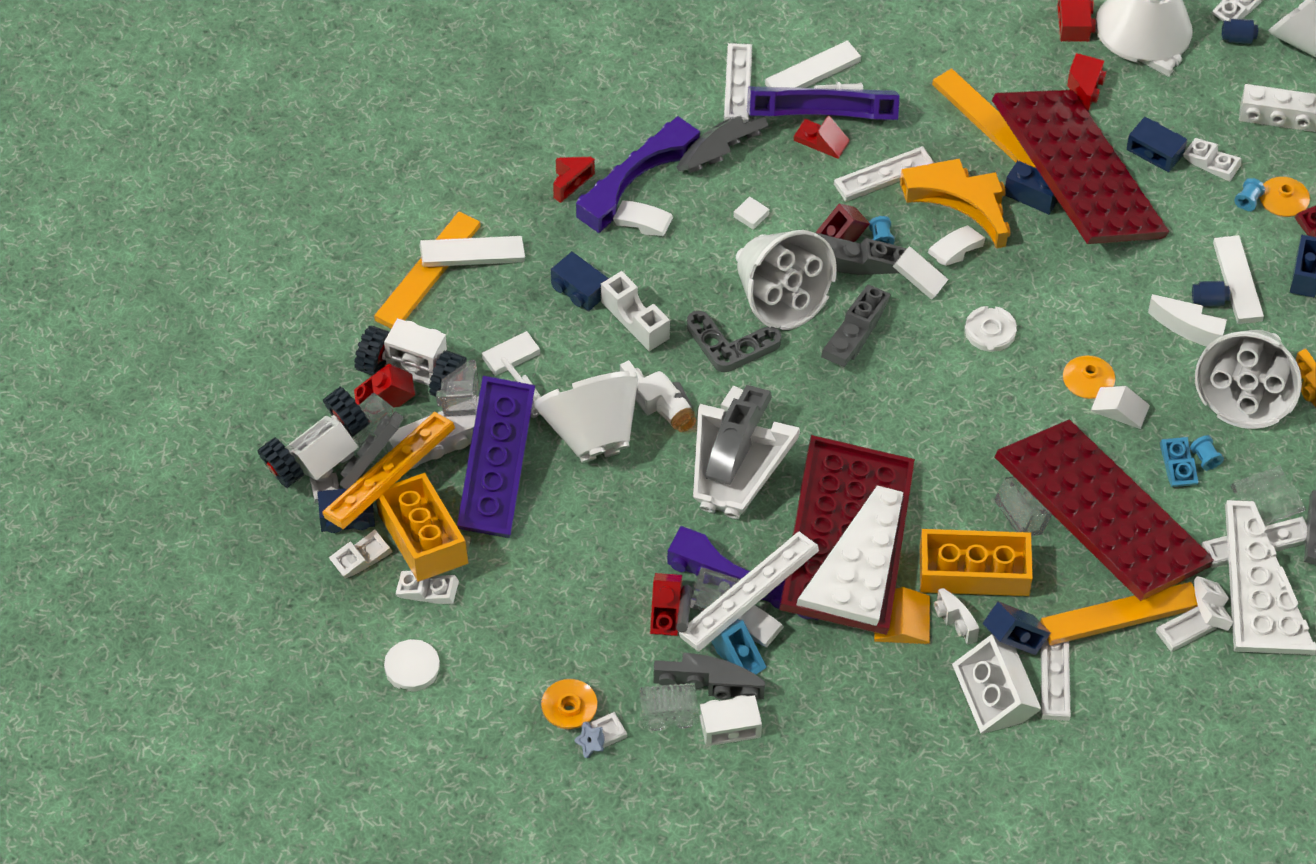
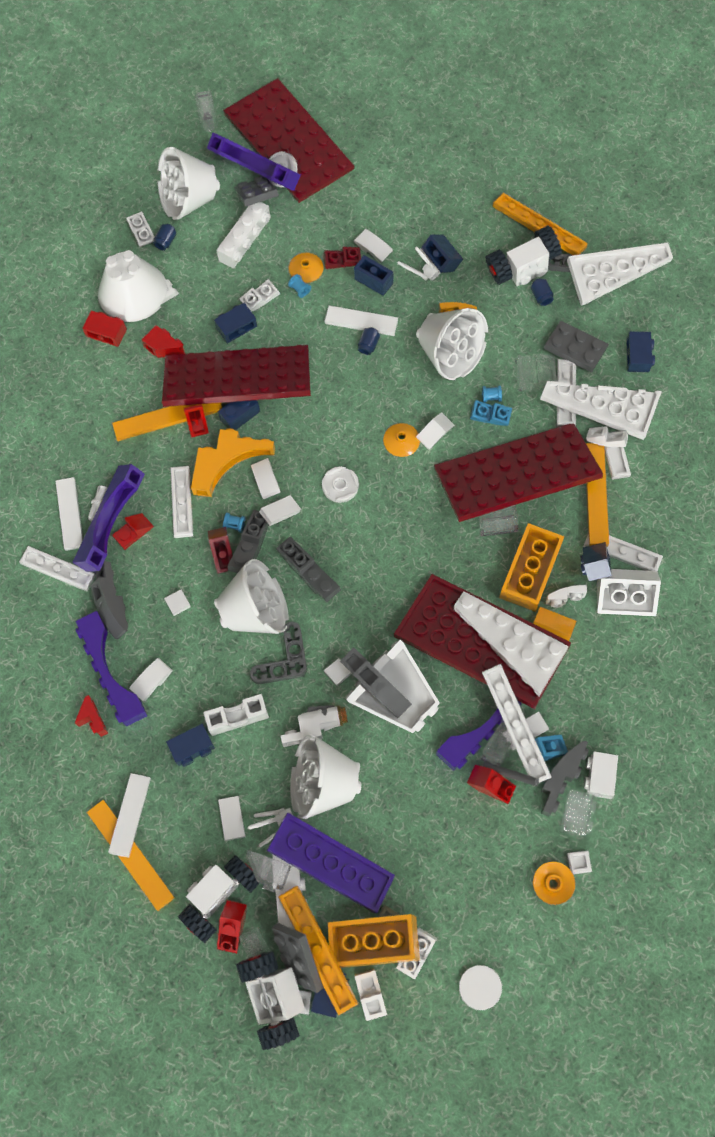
camera: 65 degrees left, 15 degrees up
(597, 739) = (587, 877): sand blue plate -> none
(997, 146) = (196, 420): none -> red slope
(1186, 319) = (386, 362): white slope -> none

